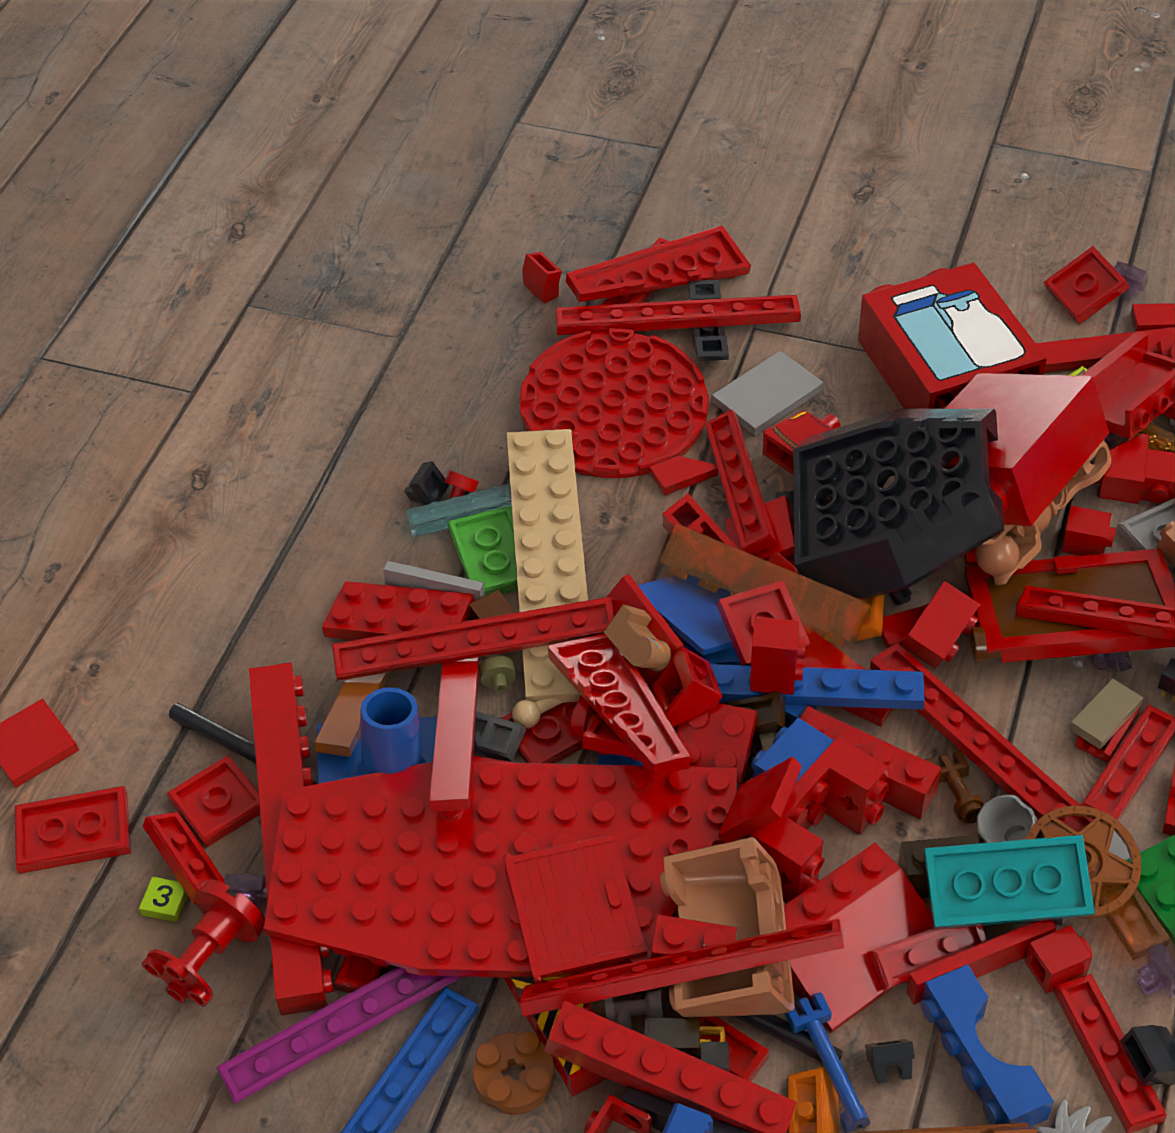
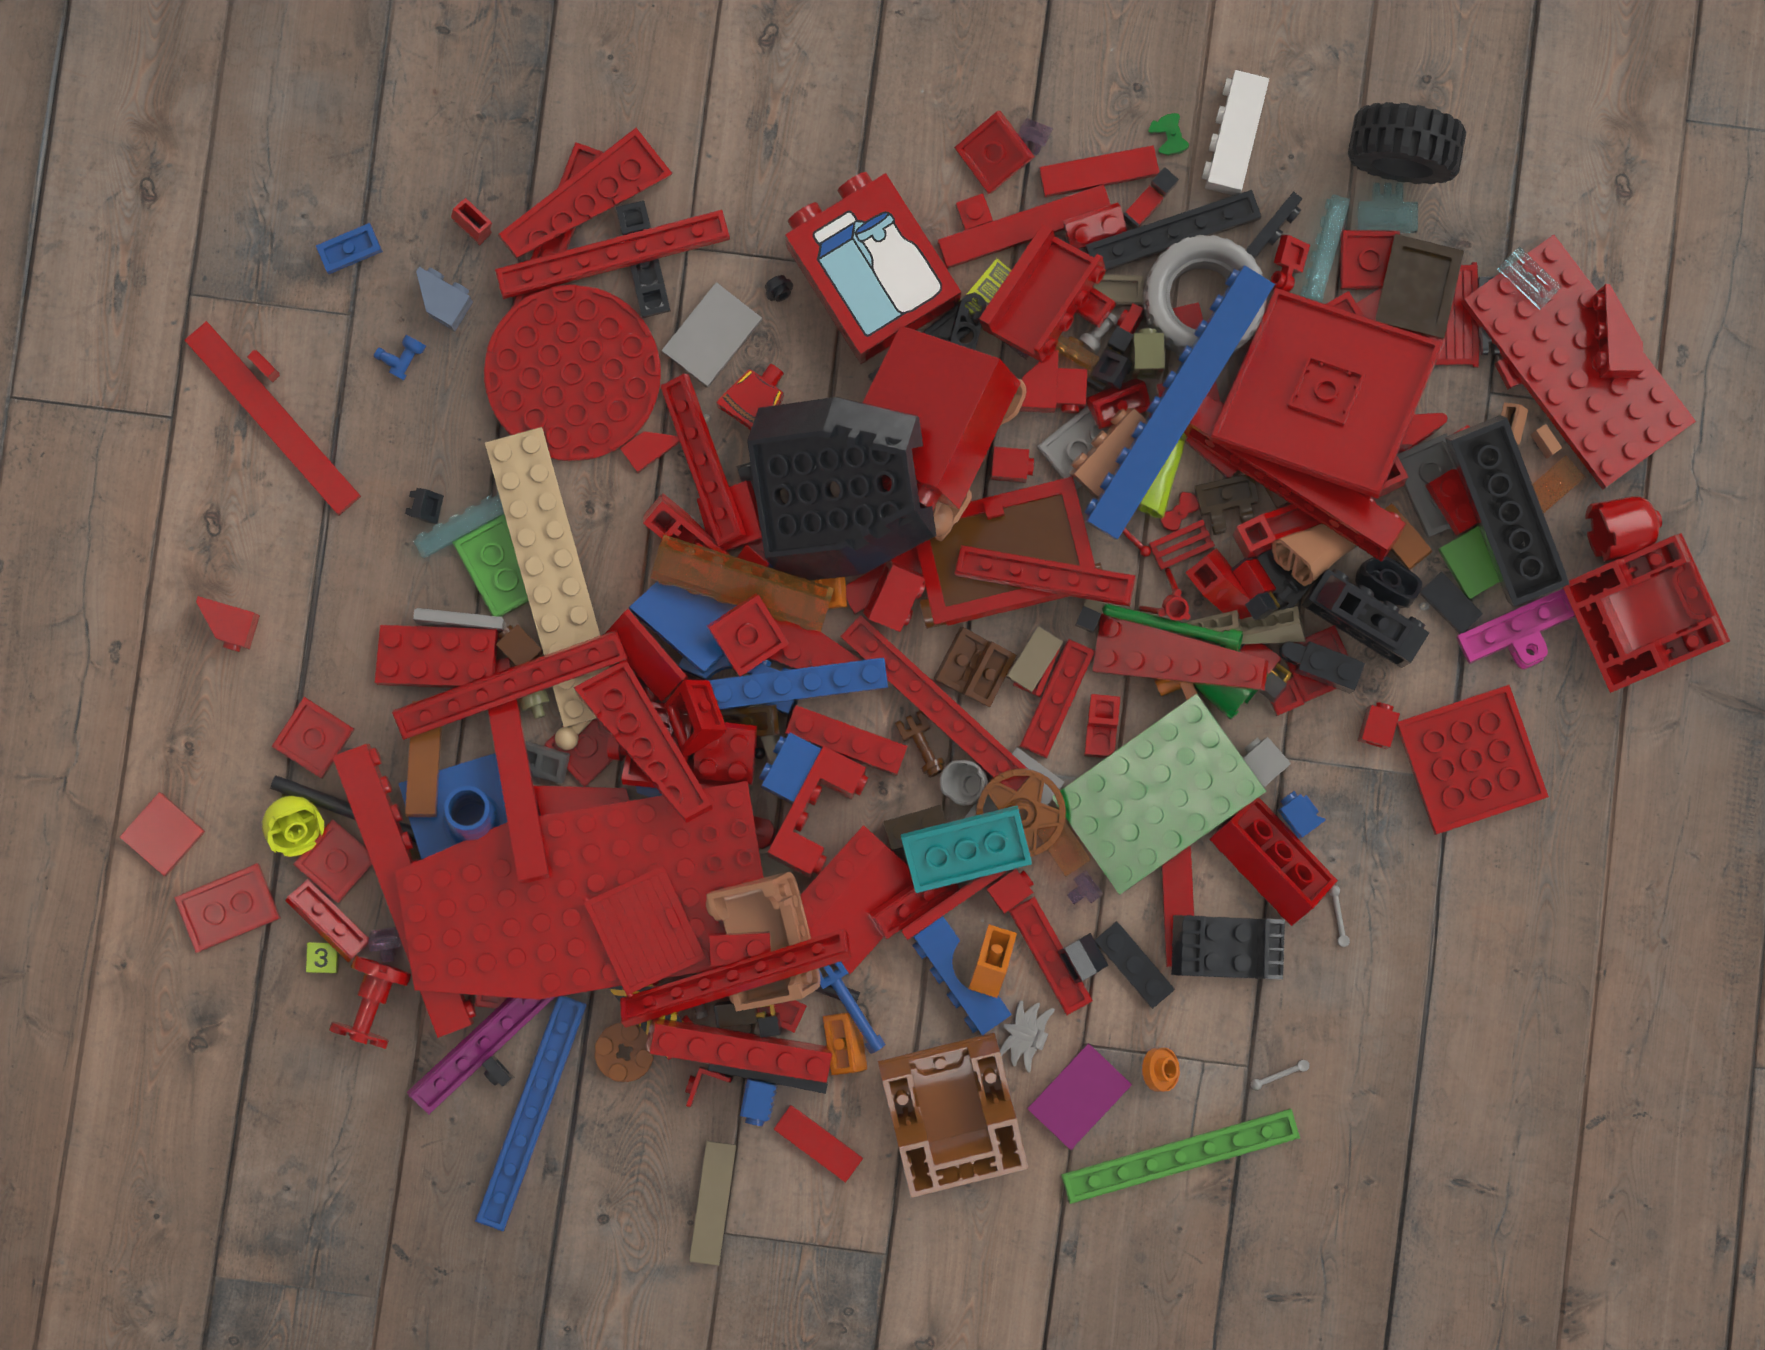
camera: 15 degrees left, 35 degrees up
(185, 555) = (229, 623): none -> red slope
(191, 755) = (292, 825): none -> neon yellow cylinder
(225, 676) = (313, 737): none -> red tile
(295, 404) = (272, 418): none -> red tile
(299, 356) = (263, 365): none -> red tile
(340, 1063) = (496, 1072): none -> black plate
(414, 284) = (349, 248): none -> blue plate
(454, 361) = (400, 365): none -> blue piece
(460, 484) = (455, 498): red tile -> none
(498, 329) = (441, 300): none -> sand blue slope
(635, 641) = (648, 677): medium nougat leg -> none
(760, 801) = (771, 823): red tile -> none
(775, 655) = (764, 687): red brick -> none
(842, 356) = (778, 288): none -> black plate
(887, 1053) = (893, 991): black tile -> none
(1031, 717) = (975, 667): none -> reddish brown slope
(1031, 1028) = (992, 961): none -> orange brick
(1059, 329) = (973, 211): none -> red plate

